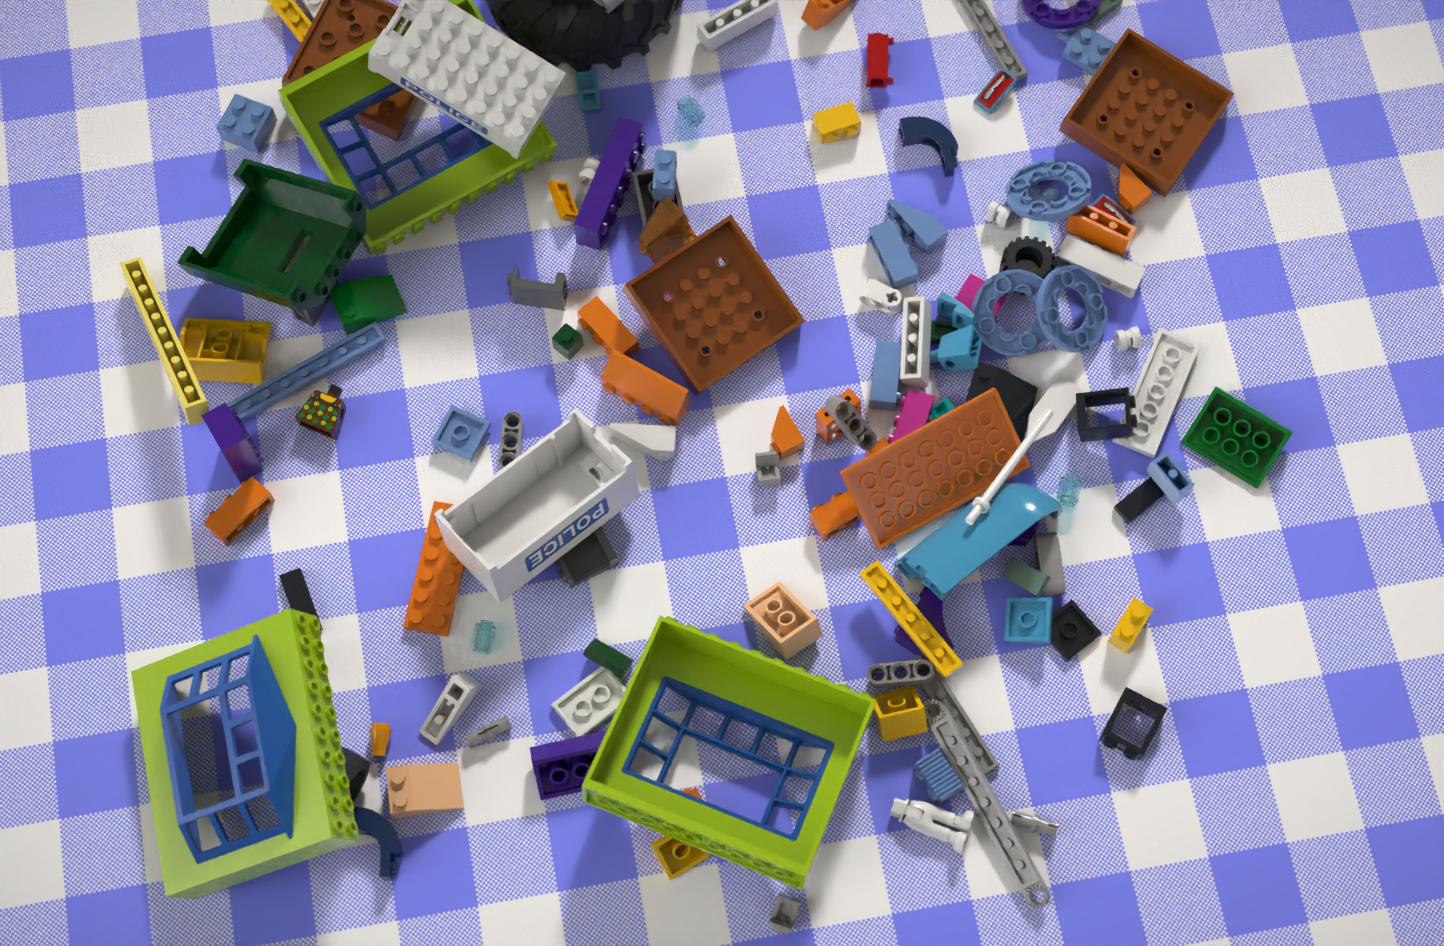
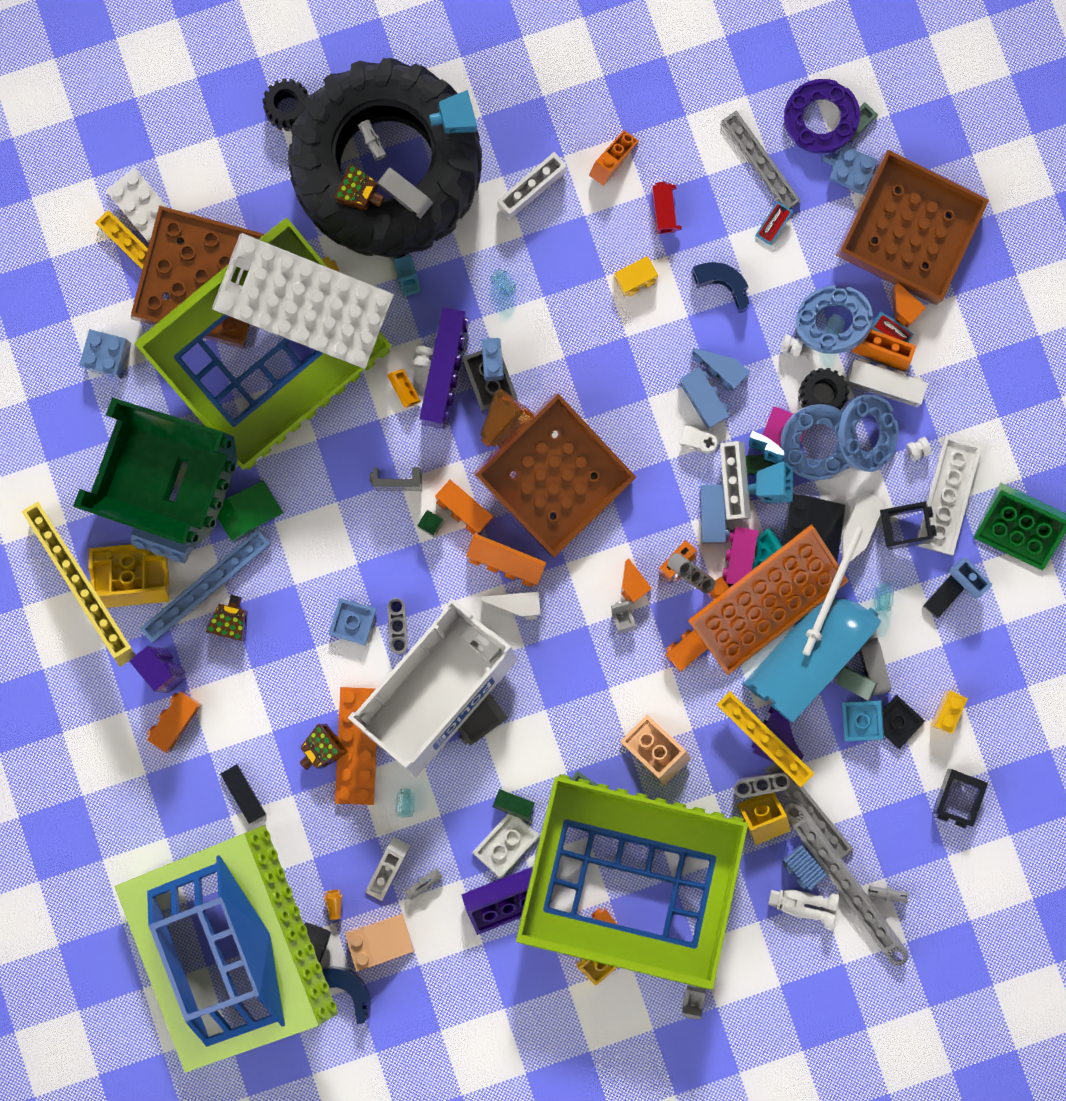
camera: 10 degrees left, 15 degrees up
(268, 318) = (160, 546): none -> medium blue brick
(399, 561) = (321, 748): none -> reddish brown torso

